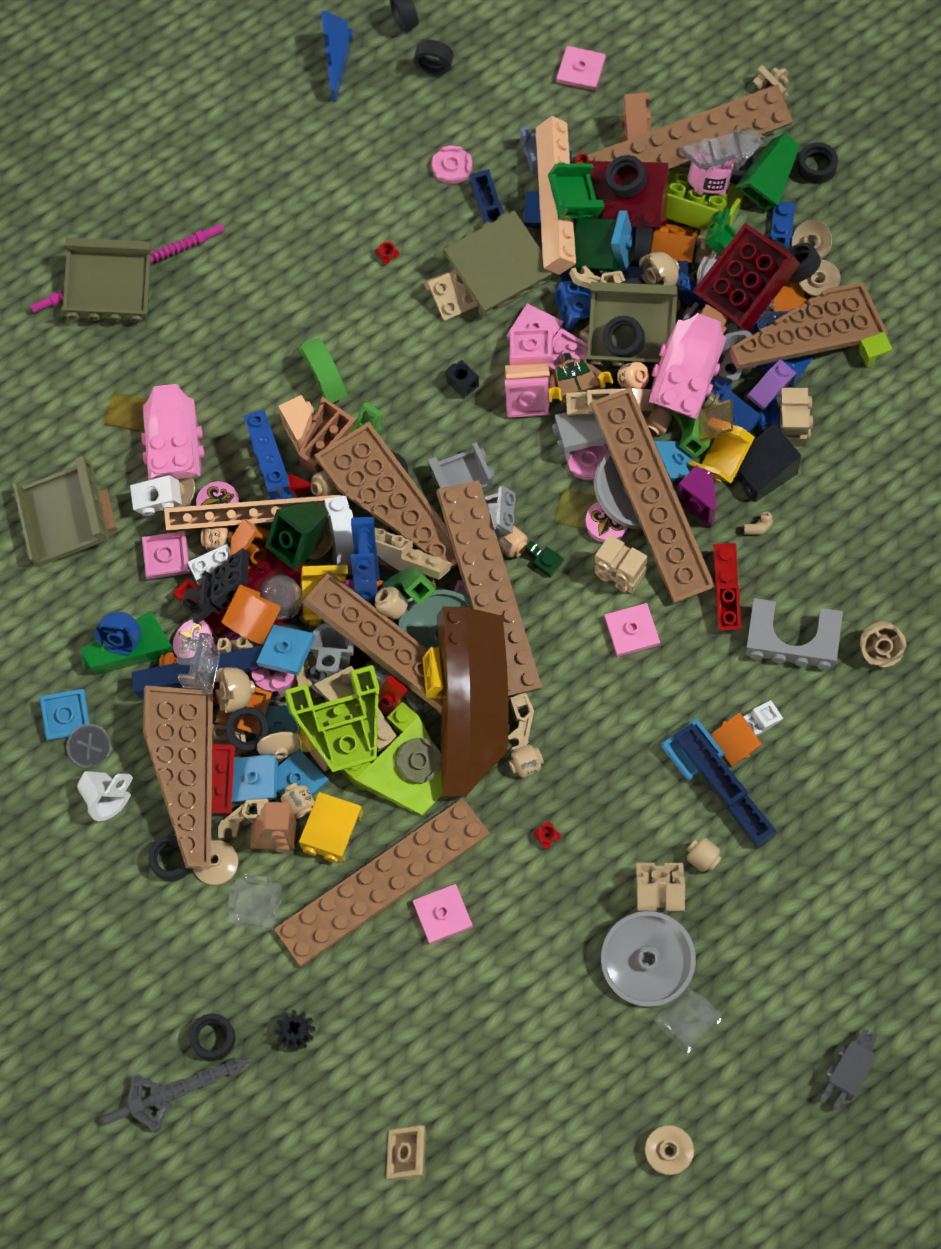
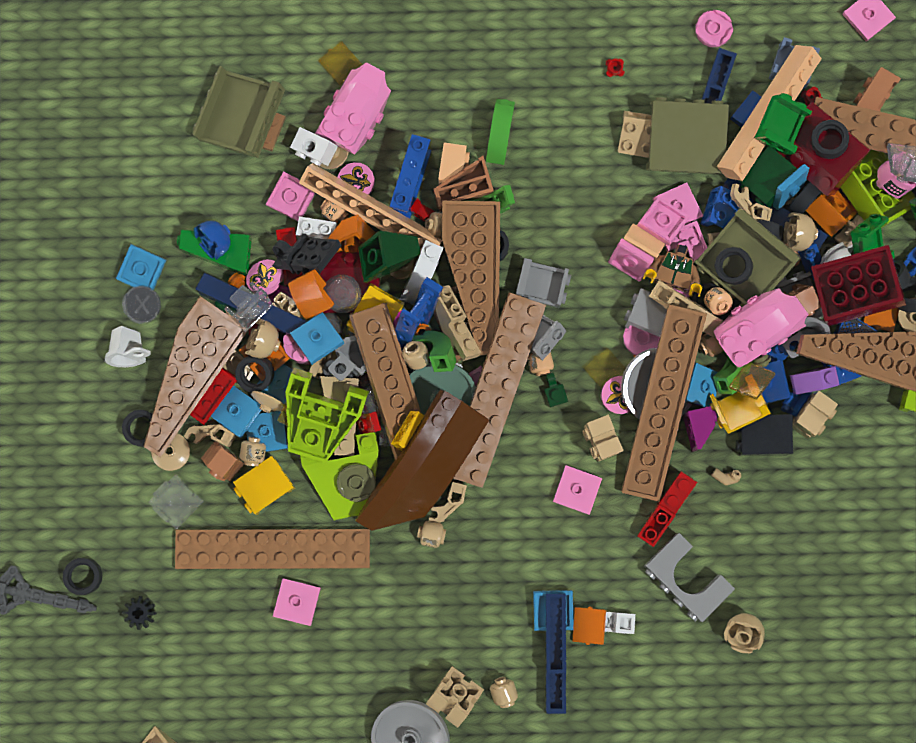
camera: 30 degrees right, 15 degrees up
(464, 386) = (596, 217): black brick -> none
(547, 828) = (412, 601): red plate -> none

